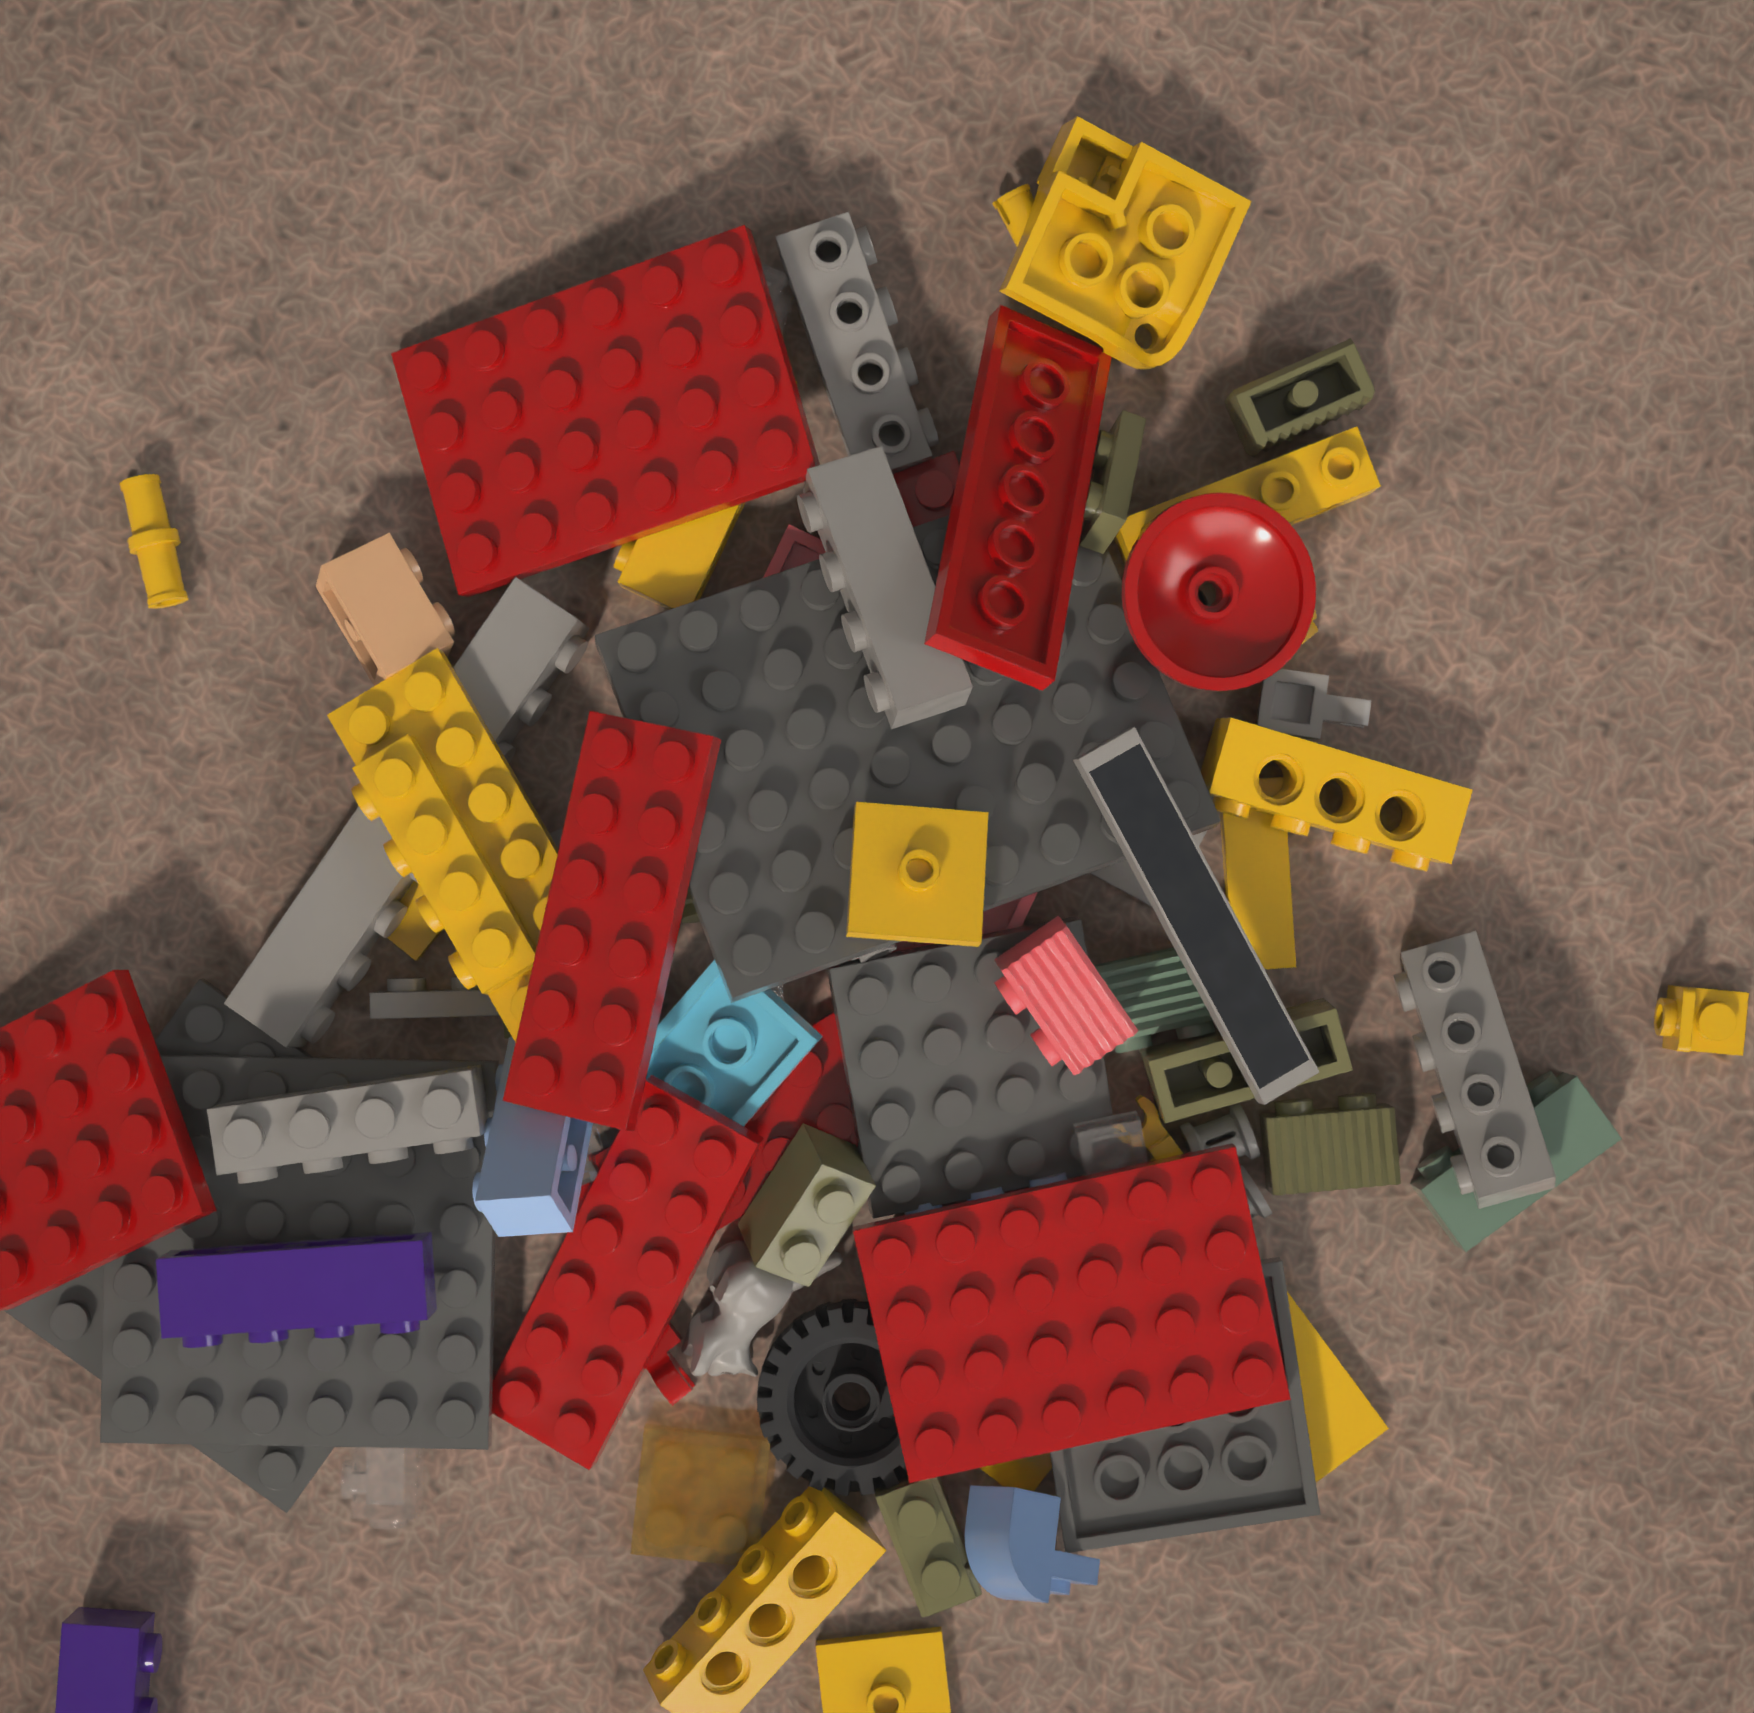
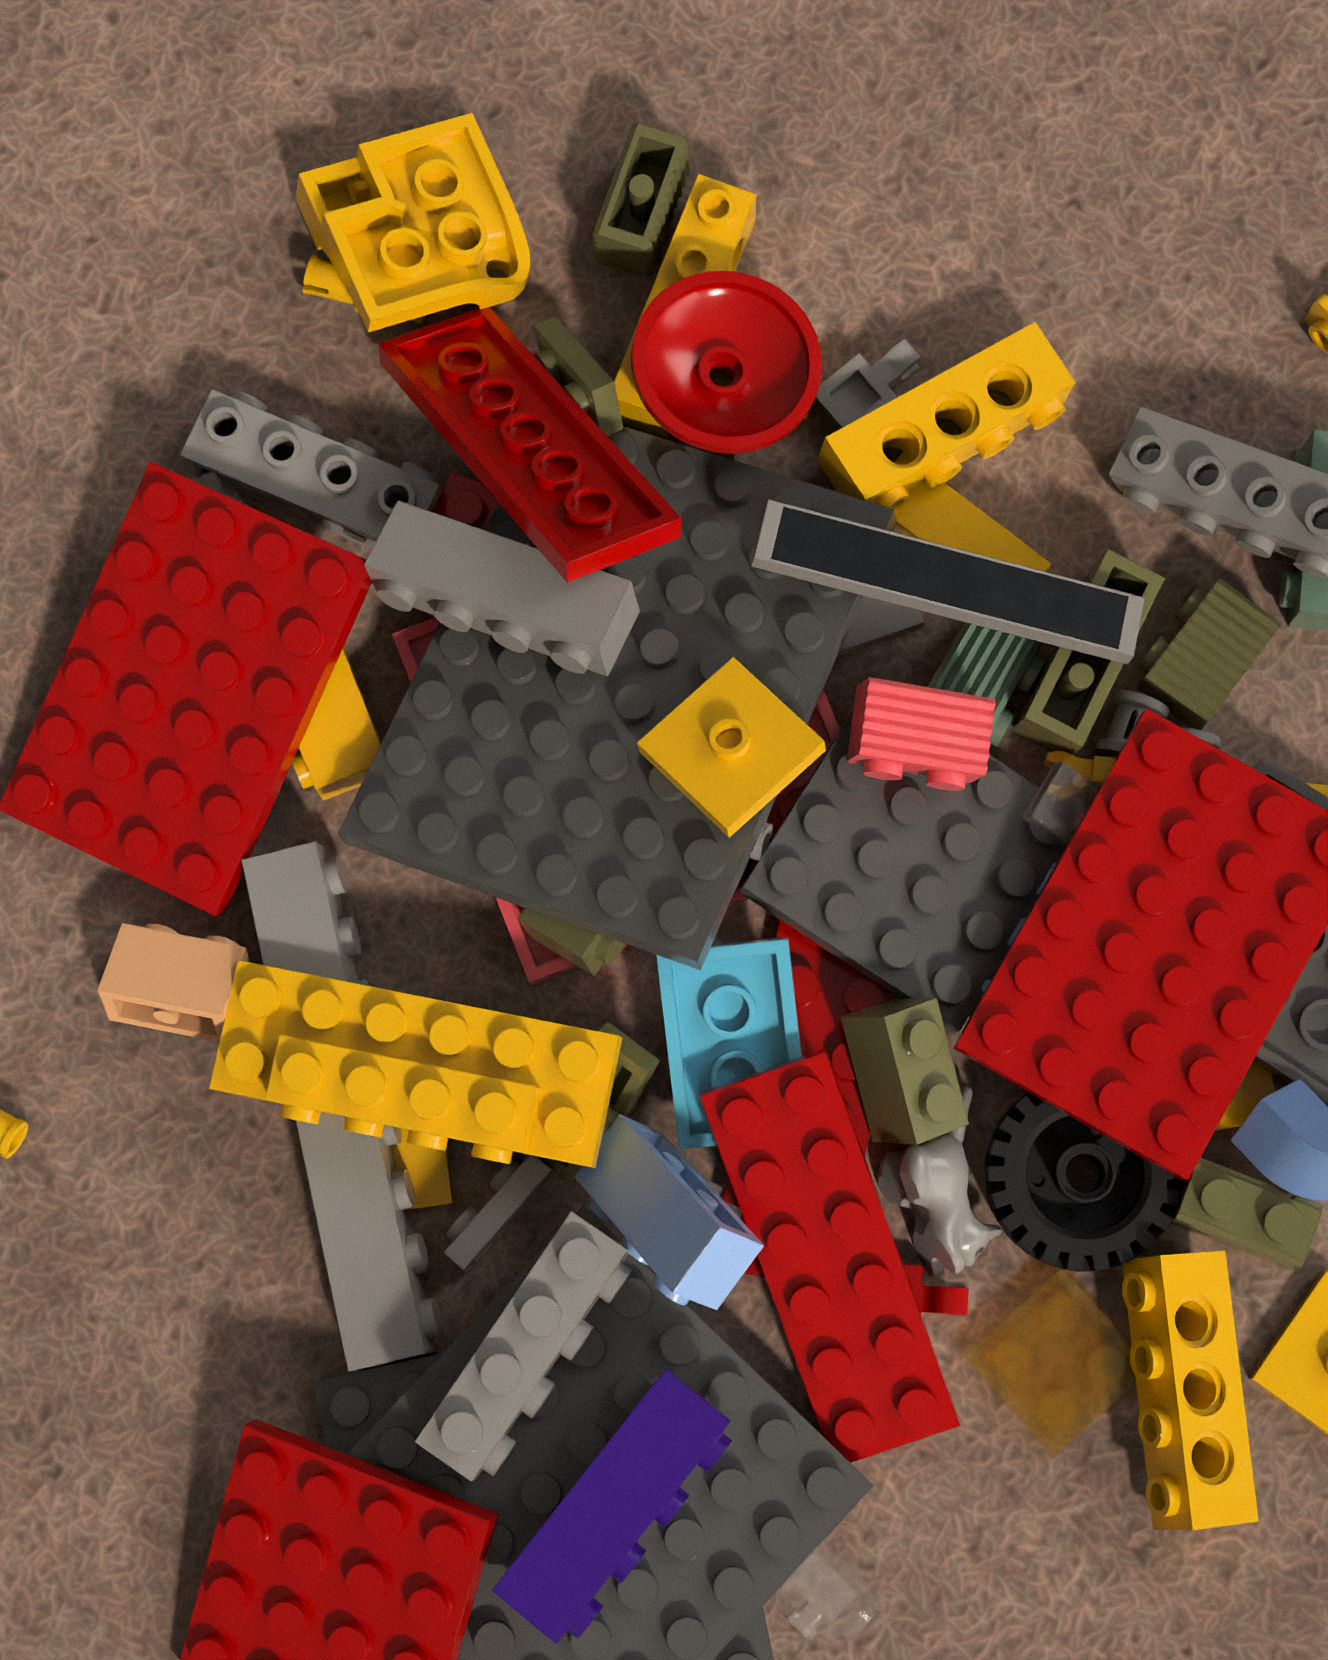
camera: 45 degrees left, 10 degrees down
(612, 920) = (558, 1002): red plate -> none

